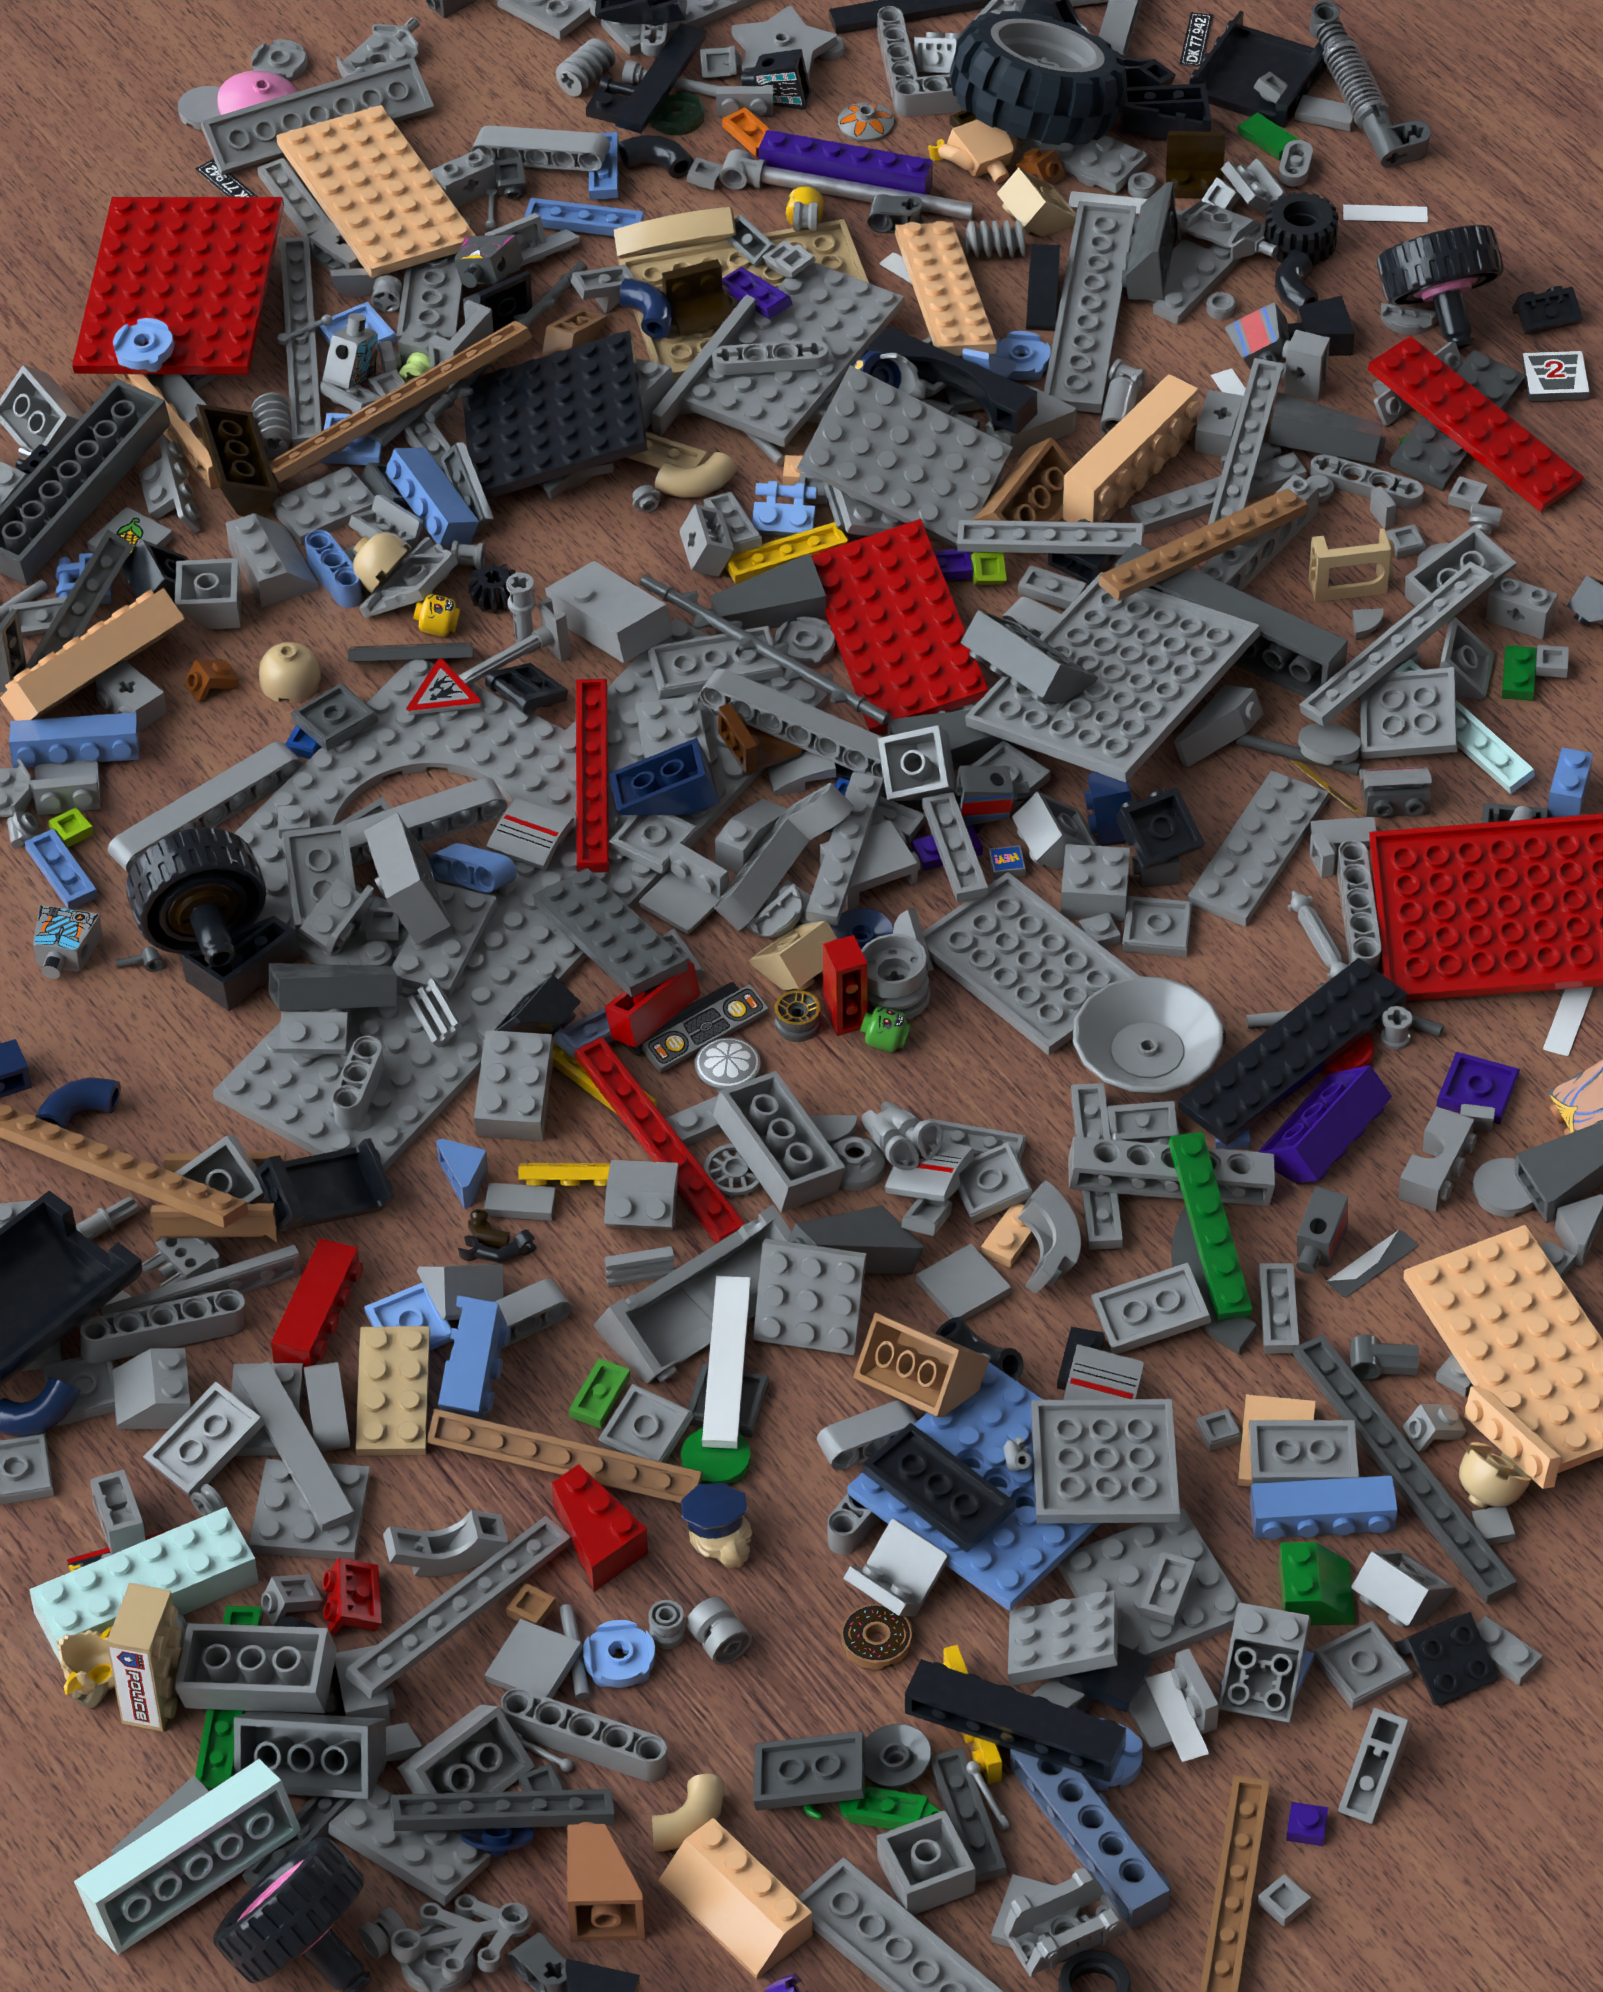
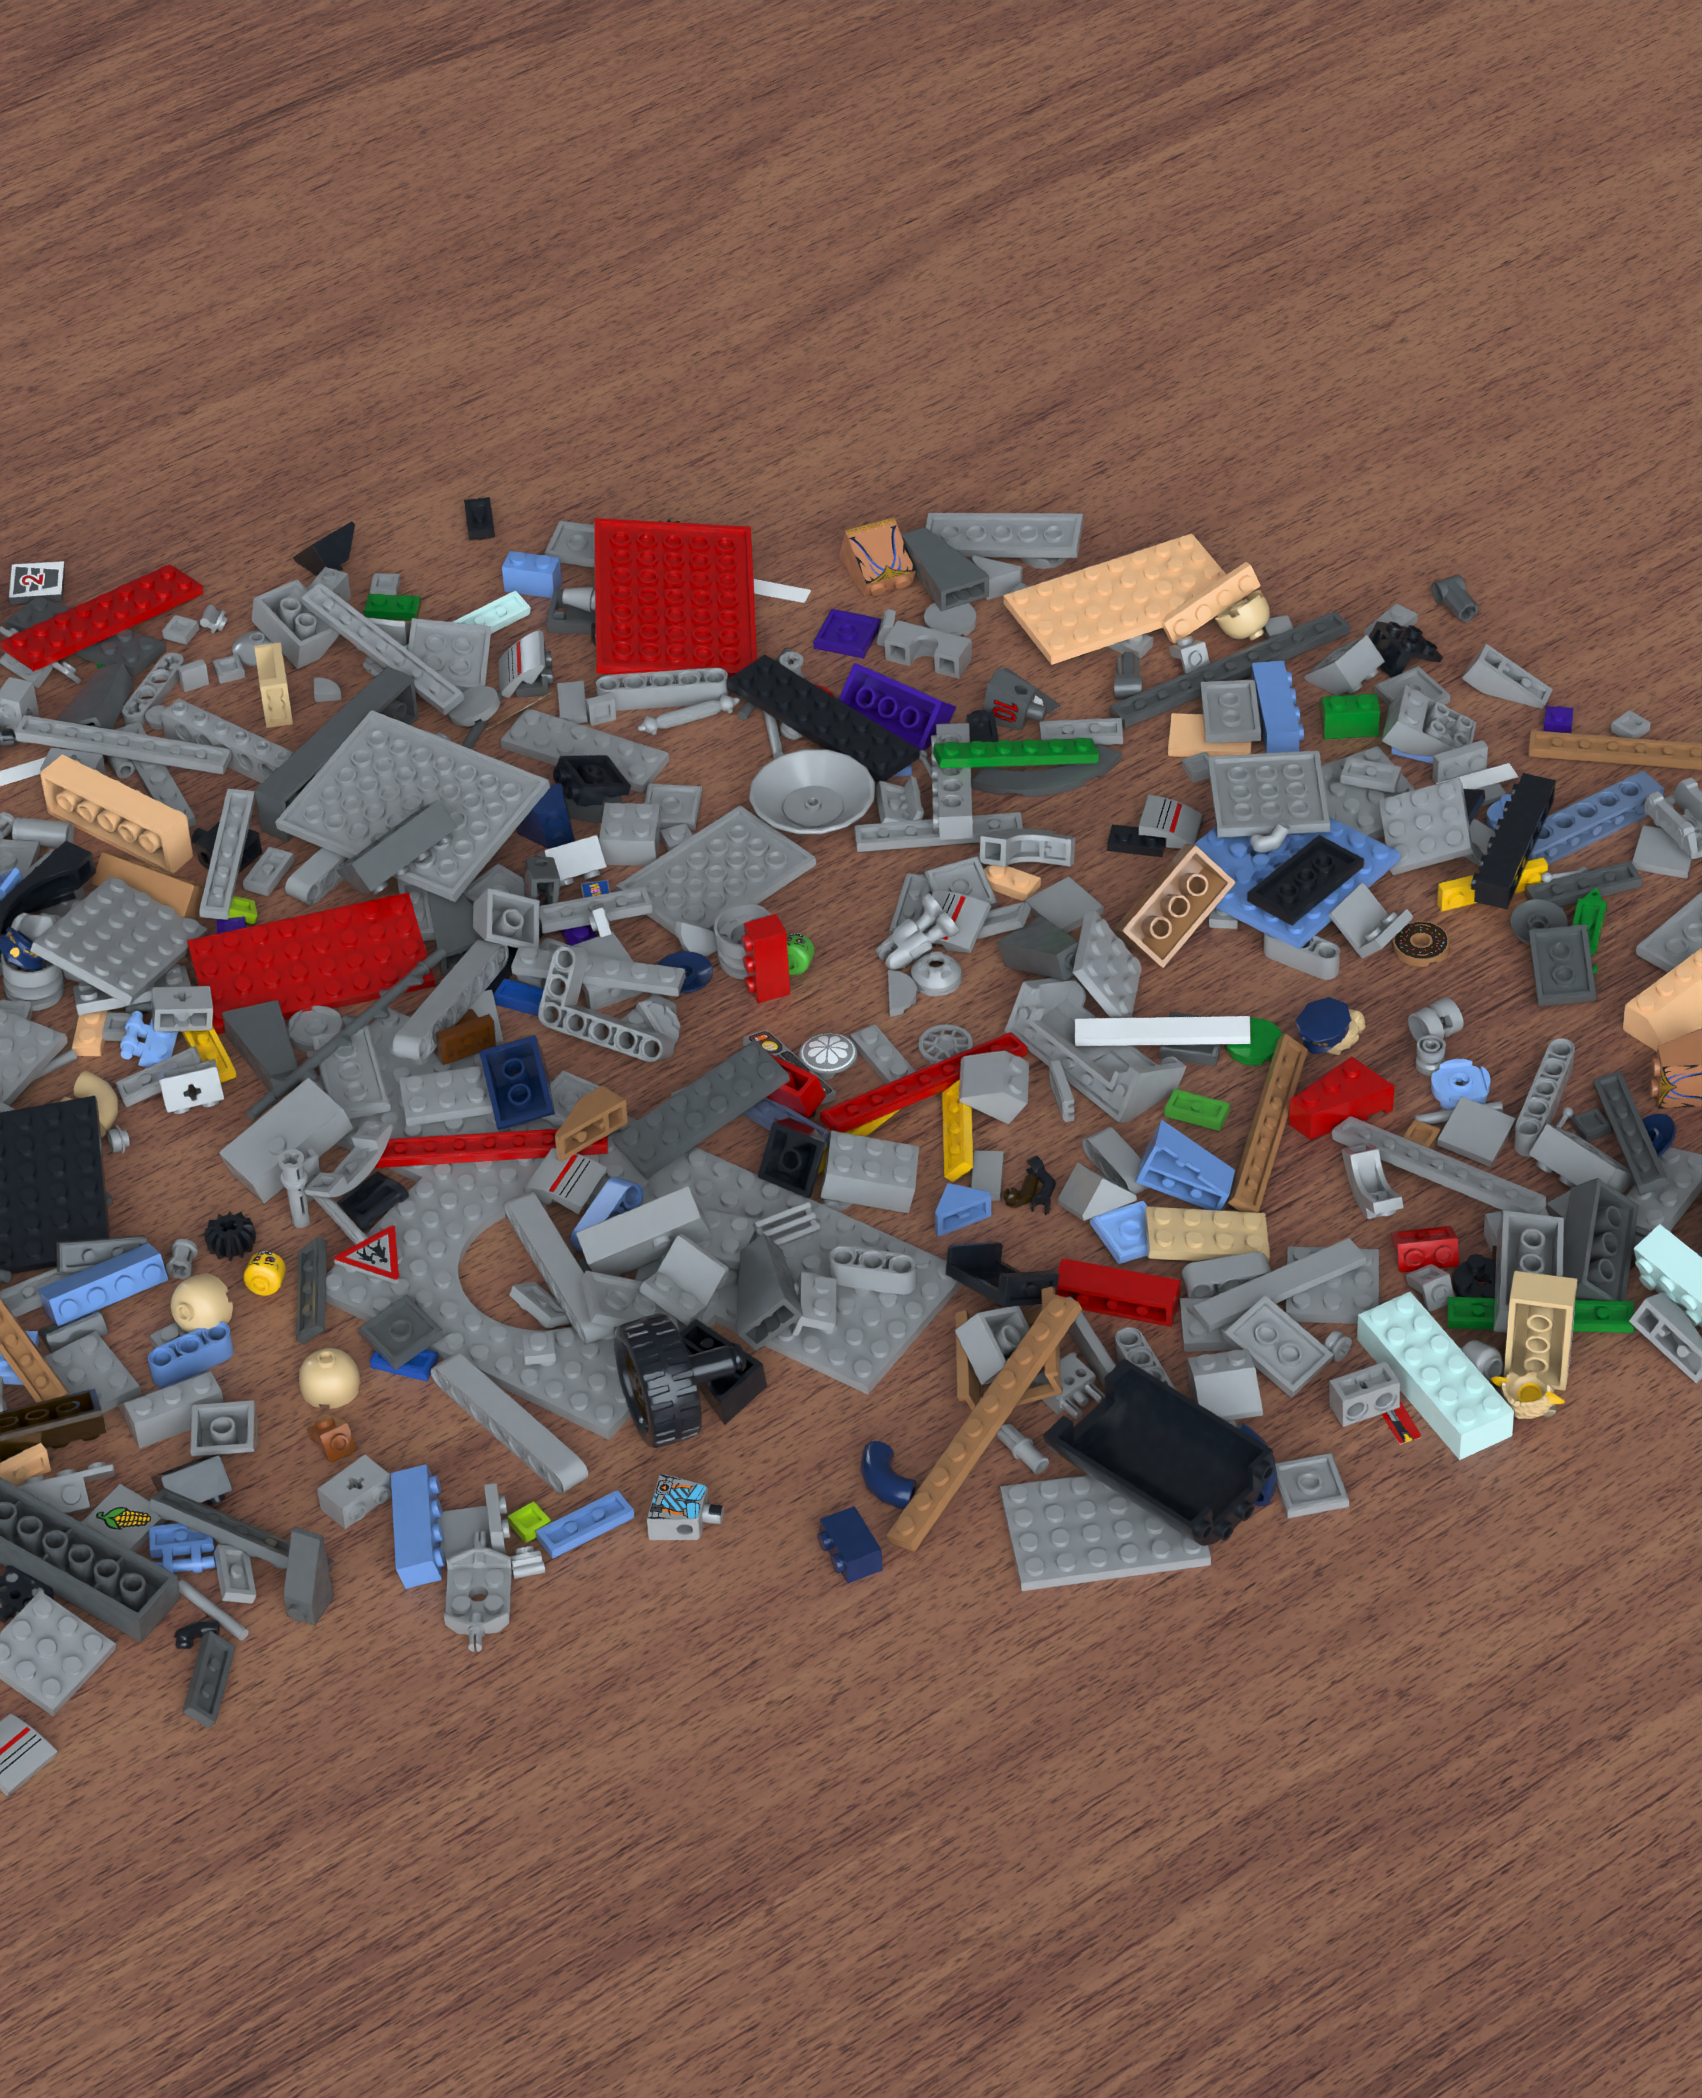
camera: 90 degrees left, 5 degrees down
(91, 655) = (304, 1494): light nougat brick -> none
(149, 957) = (701, 1447): dark grey hand -> none
(388, 517) = (135, 1317): light grey bracket -> none
(411, 579) = (236, 1277): light grey wing -> none
(525, 643) = (369, 1146): none -> light grey slope
(595, 837) = (589, 1121): none -> medium nougat slope
(645, 1425) = (1230, 1080): light grey tile -> none
(687, 890) = (633, 1082): light grey bracket -> none
(702, 1804) = (1614, 1031): tan cylinder -> none
(745, 833) = (569, 1048): light grey slope -> none
(778, 1141) = (930, 1003): light grey brick -> none
(795, 956) = (708, 1010): tan slope -> none
(797, 1016) = (776, 1010): dark grey wheel -> none
(810, 518) = (181, 1008): none -> light grey brick
(862, 1435) = (1227, 950): light grey beam -> none
(923, 845) = (599, 920): none -> plate
(926, 1863) = (1639, 897): light grey brick -> none
(1005, 1359) = (1131, 891): black cylinder -> none
(1150, 1308) = (1090, 795): light grey plate -> none
(1202, 544) = (264, 747): medium nougat plate -> none
(1282, 1207) = (982, 726): none -> black bracket
(1562, 1718) = (1454, 594): none -> dark grey piece

